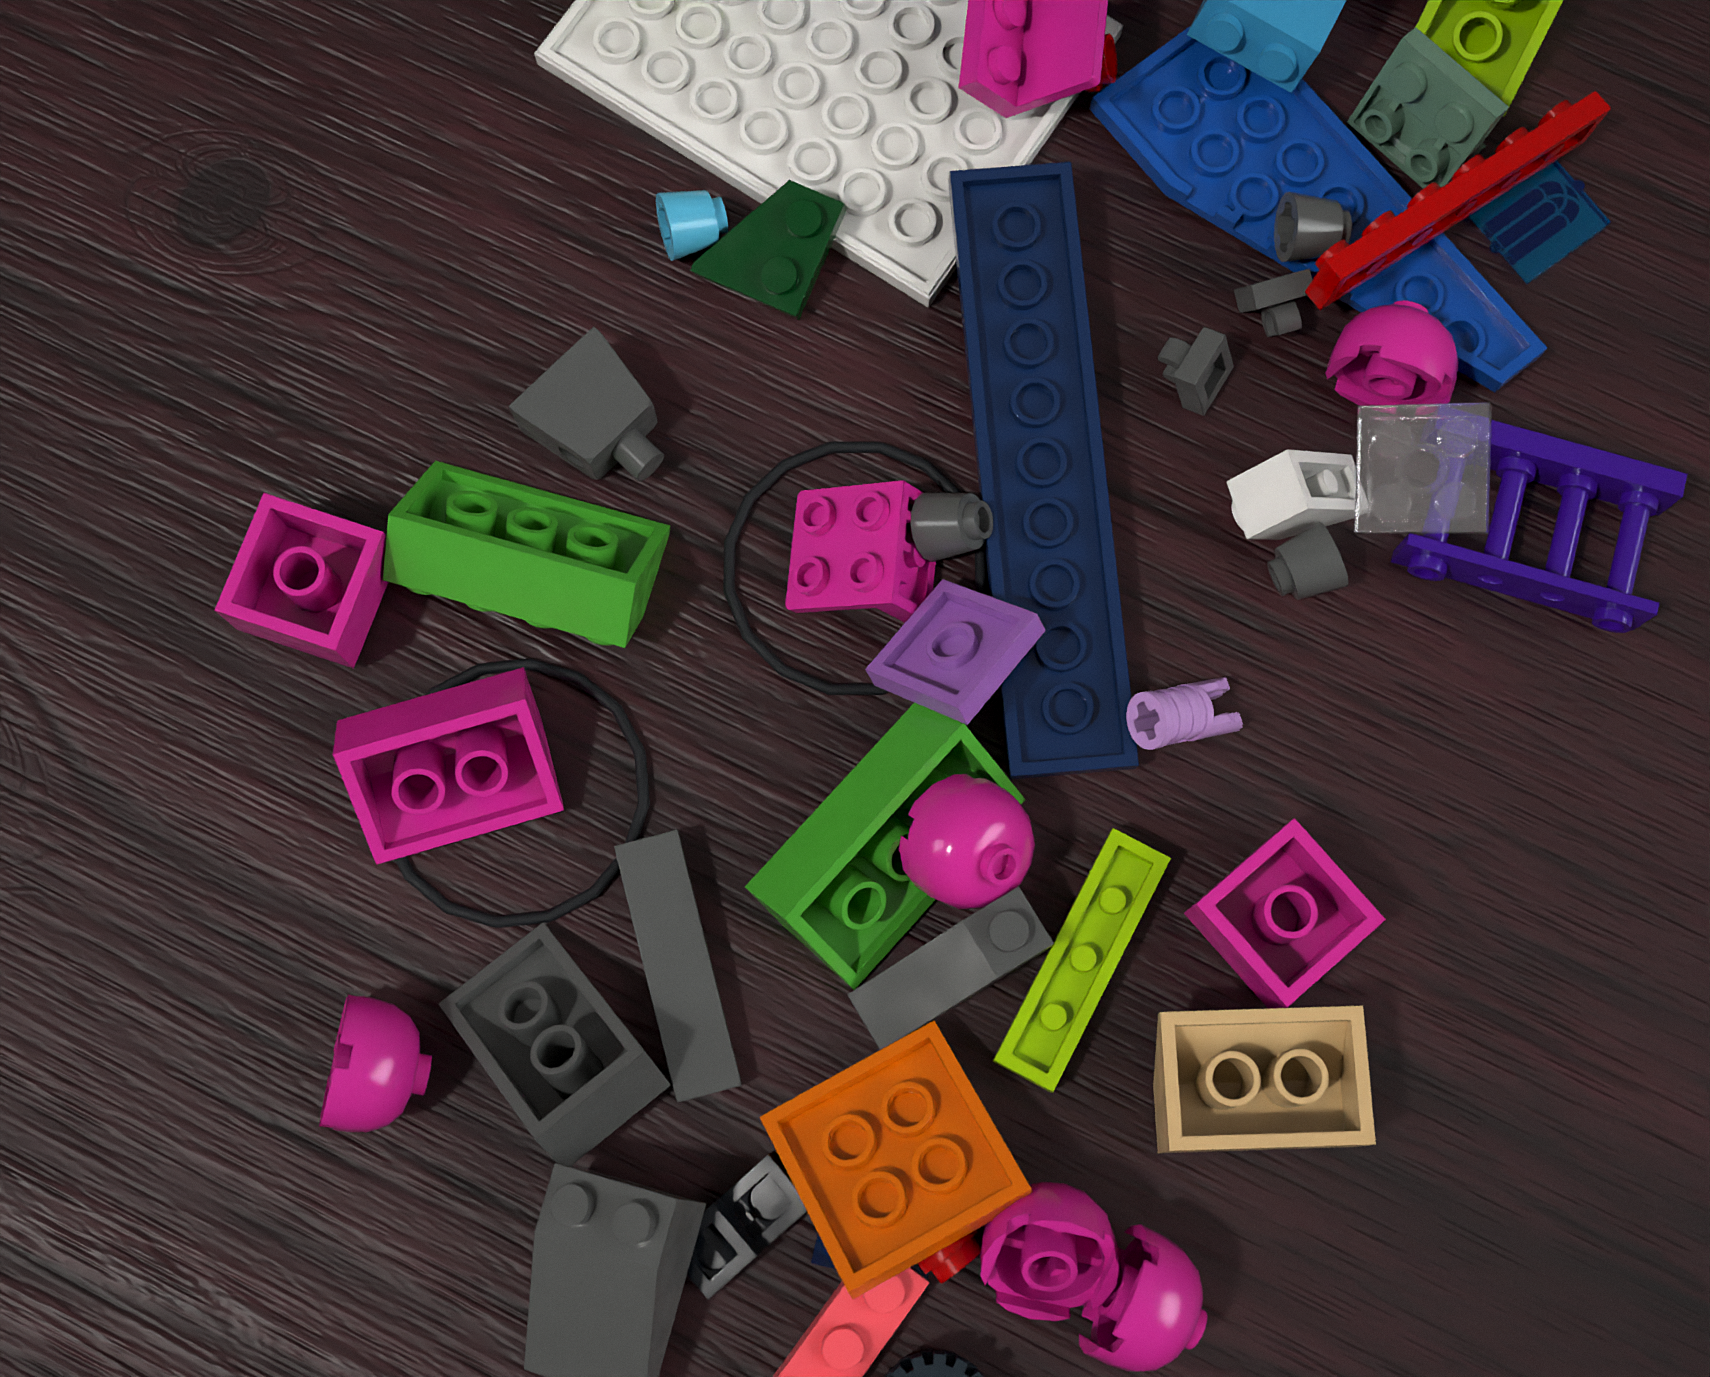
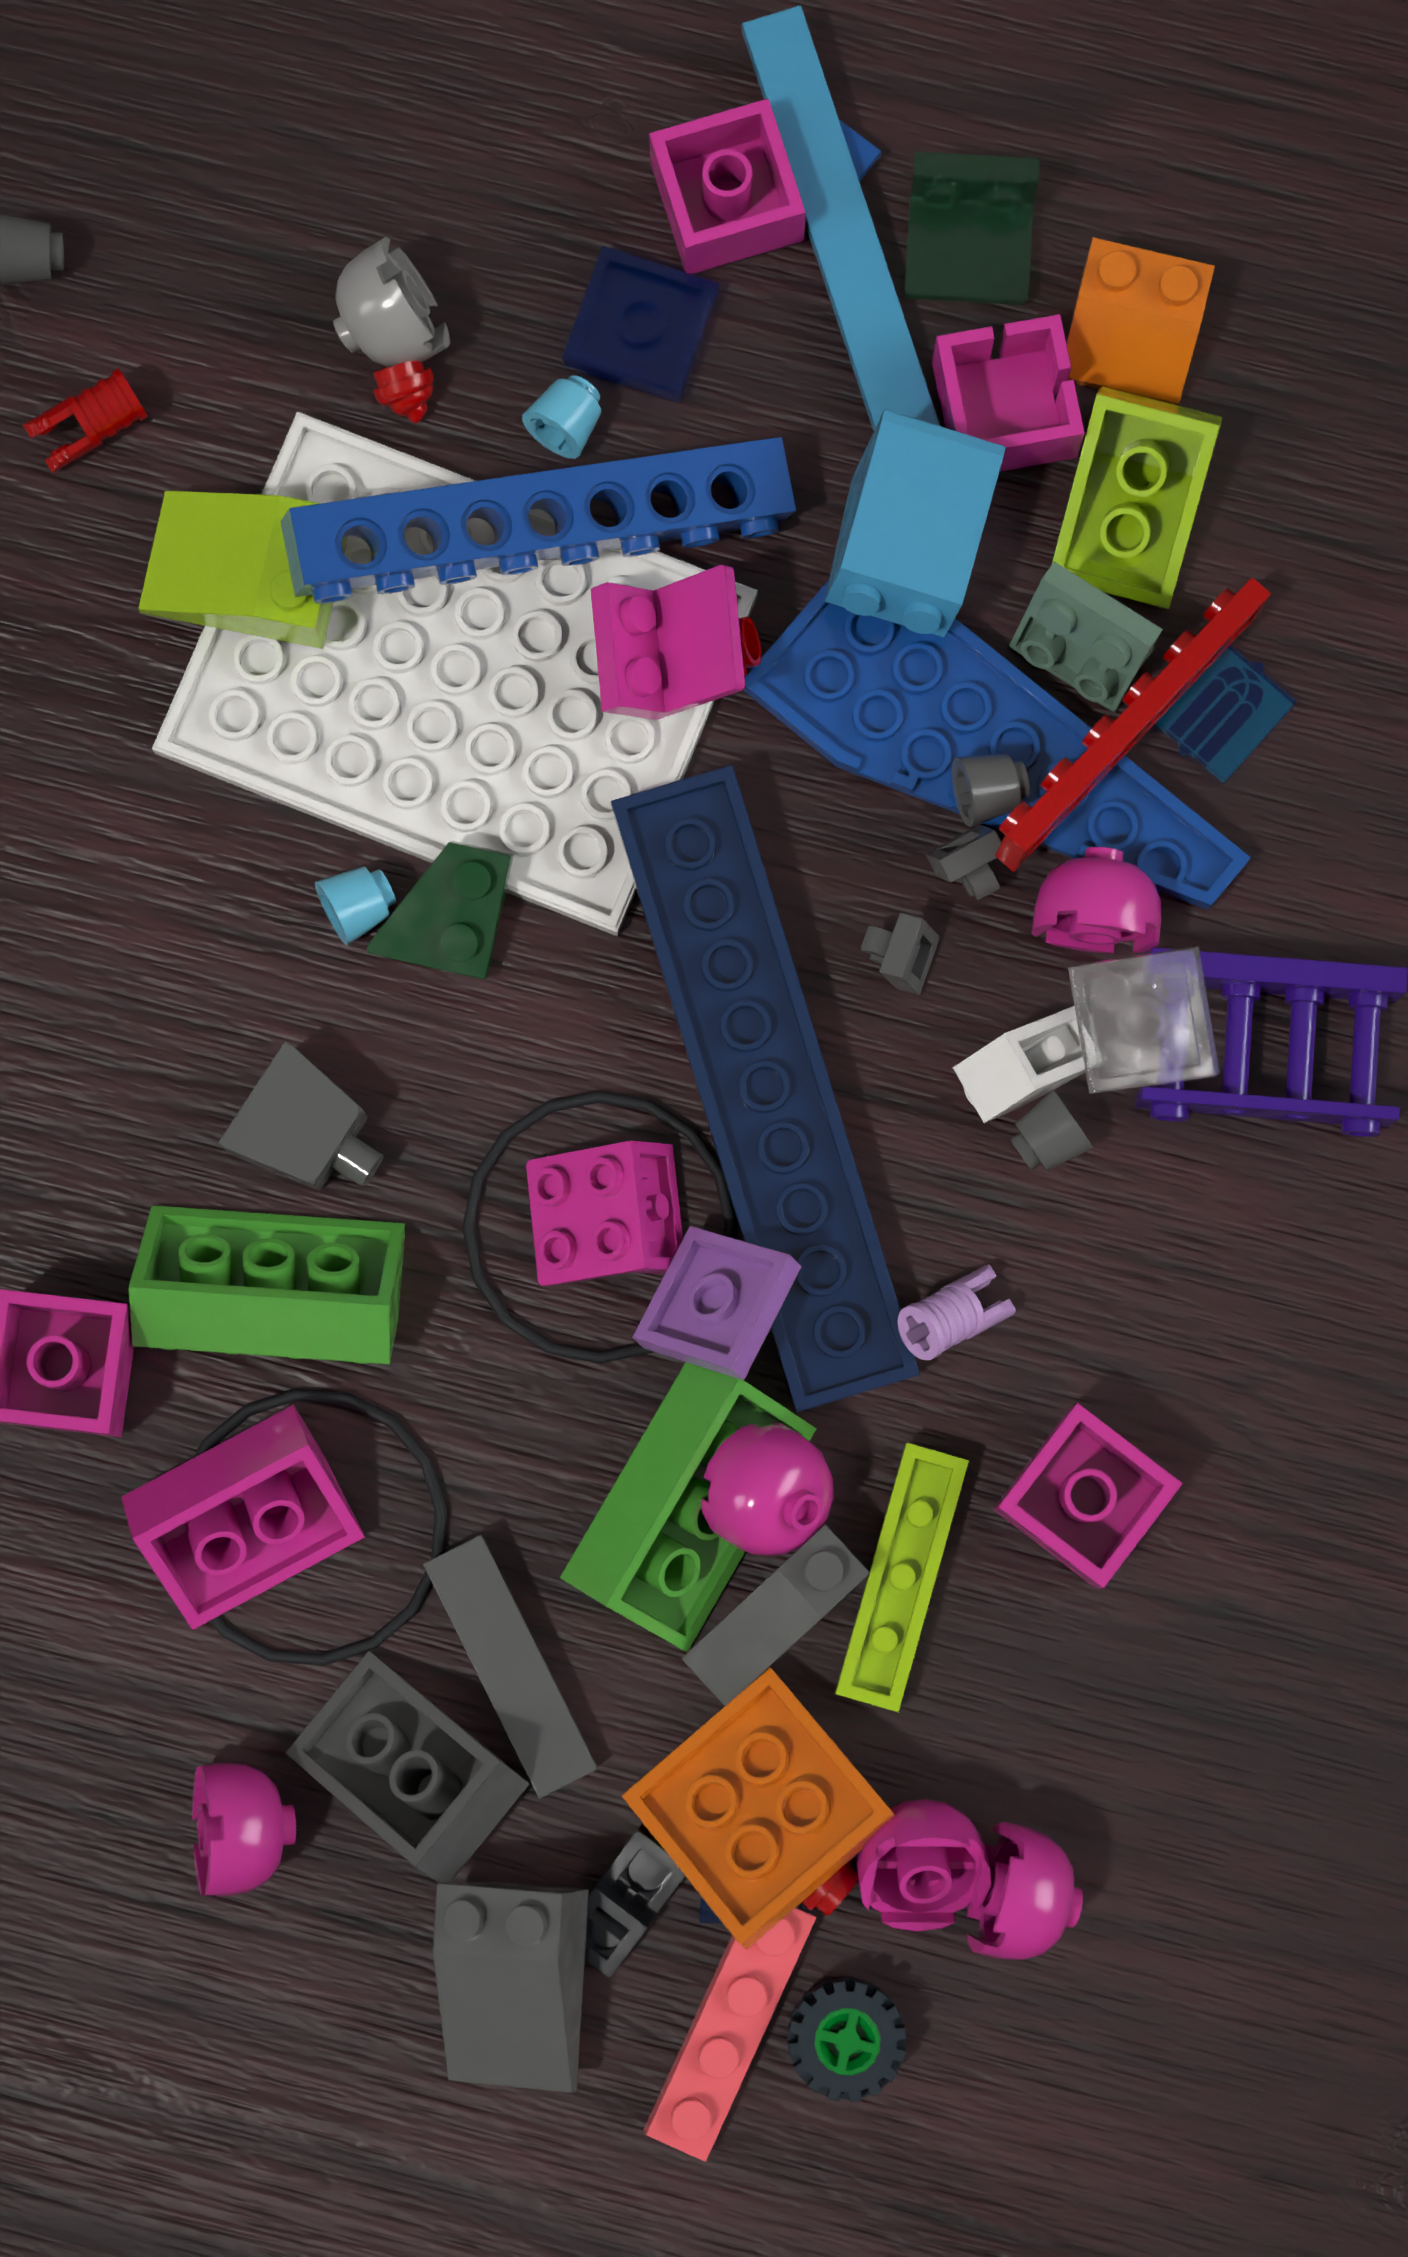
camera: 10 degrees left, 5 degrees up
(949, 524) = (685, 1170): dark grey hat -> none
(1262, 1080) = (1094, 1660): tan slope -> none

